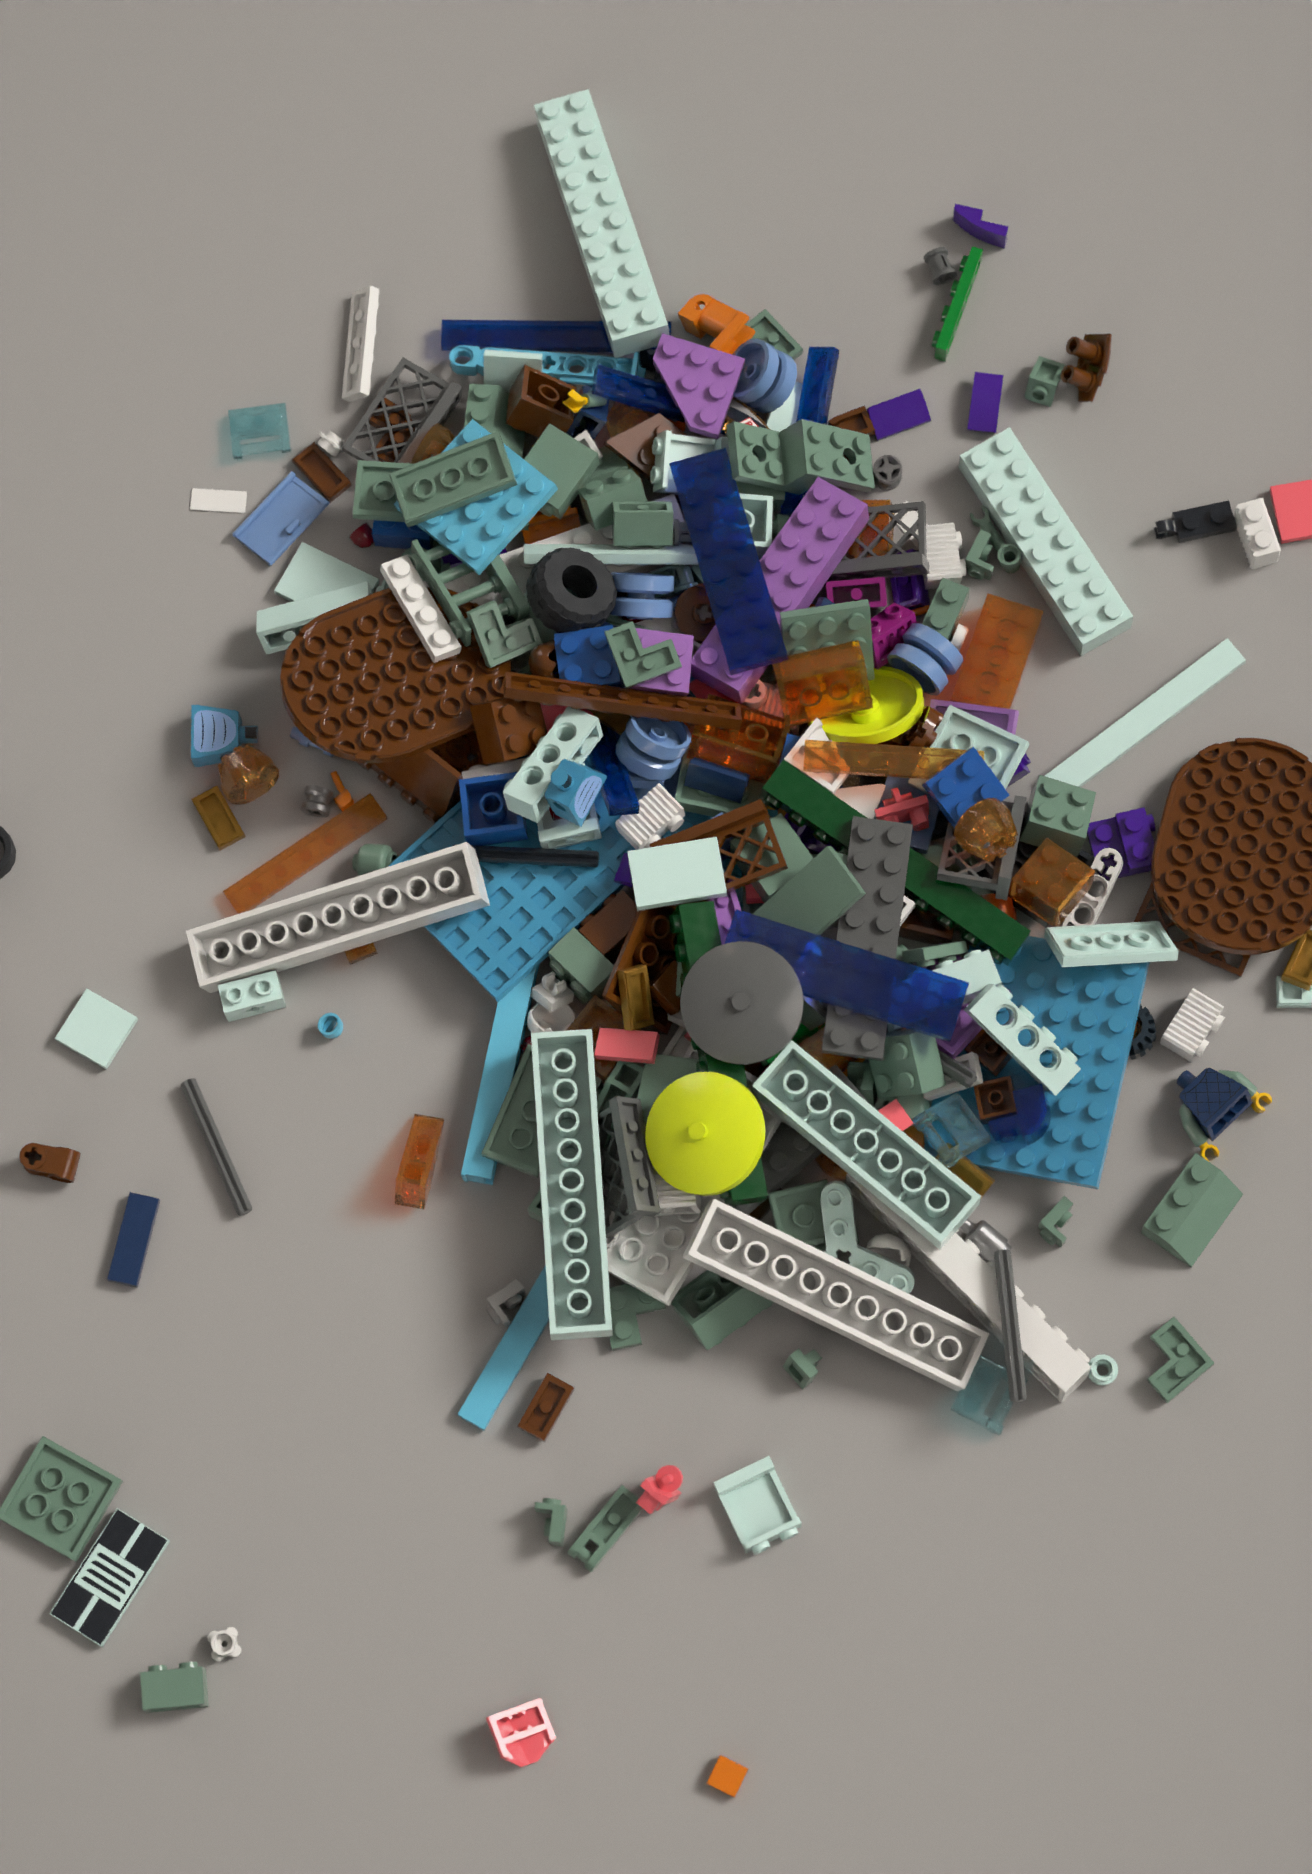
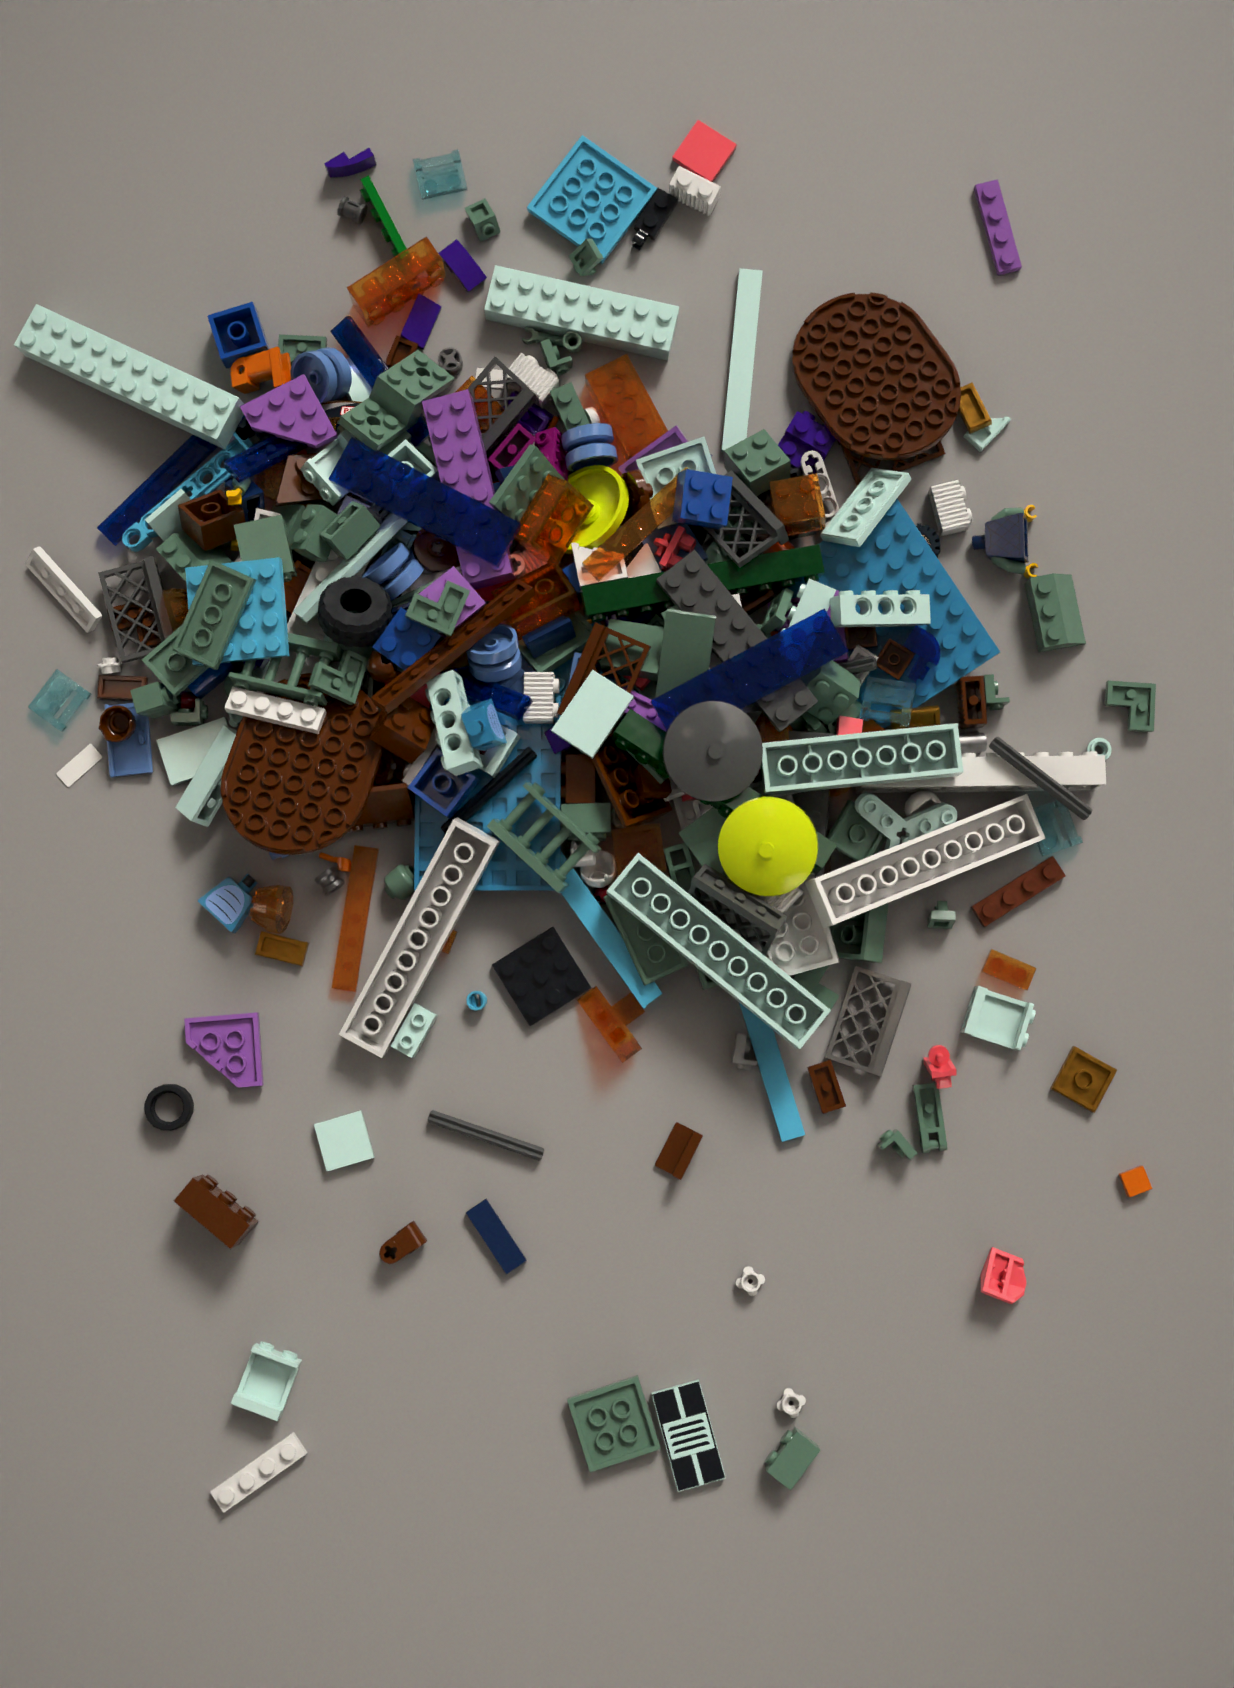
camera: 55 degrees left, 10 degrees up
(89, 852) = (229, 1045): none -> medium lavender plate
(284, 495) = (117, 723): none -> reddish brown hair
(294, 1499) = (752, 1288): none -> white plate
(334, 506) = (155, 700): none -> sand green brick
(349, 550) = (187, 717): none -> sand green bracket
(362, 1330) = (678, 1150): none -> reddish brown panel
(406, 1063) = (541, 976): none -> black plate
(448, 1166) = (628, 1009): none -> clear orange tile
(503, 925) = (521, 844): none -> sand green fence
(627, 1045) = (663, 840): coral tile -> none
(635, 997) = (640, 808): pearl gold tile -> none
(649, 1416) = (888, 1028): none -> dark grey fence
(731, 274) = (238, 333): none -> blue brick
(778, 1640) = (1083, 1079): none -> pearl gold tile
(813, 1474) = (1008, 969): none -> clear orange plate
(896, 1417) = (1018, 891): none -> copper plate
(910, 361) = (397, 282): none -> clear orange brick
(986, 829) = (741, 510): clear orange piece -> none
(1028, 1209) = (971, 702): none -> reddish brown brick
(1045, 315) = (443, 180): none -> clear light blue plate
(1092, 364) = (499, 183): reddish brown connector -> none
(1097, 498) = (586, 258): none -> sand green bracket
(1159, 455) = (592, 197): none -> medium azure plate

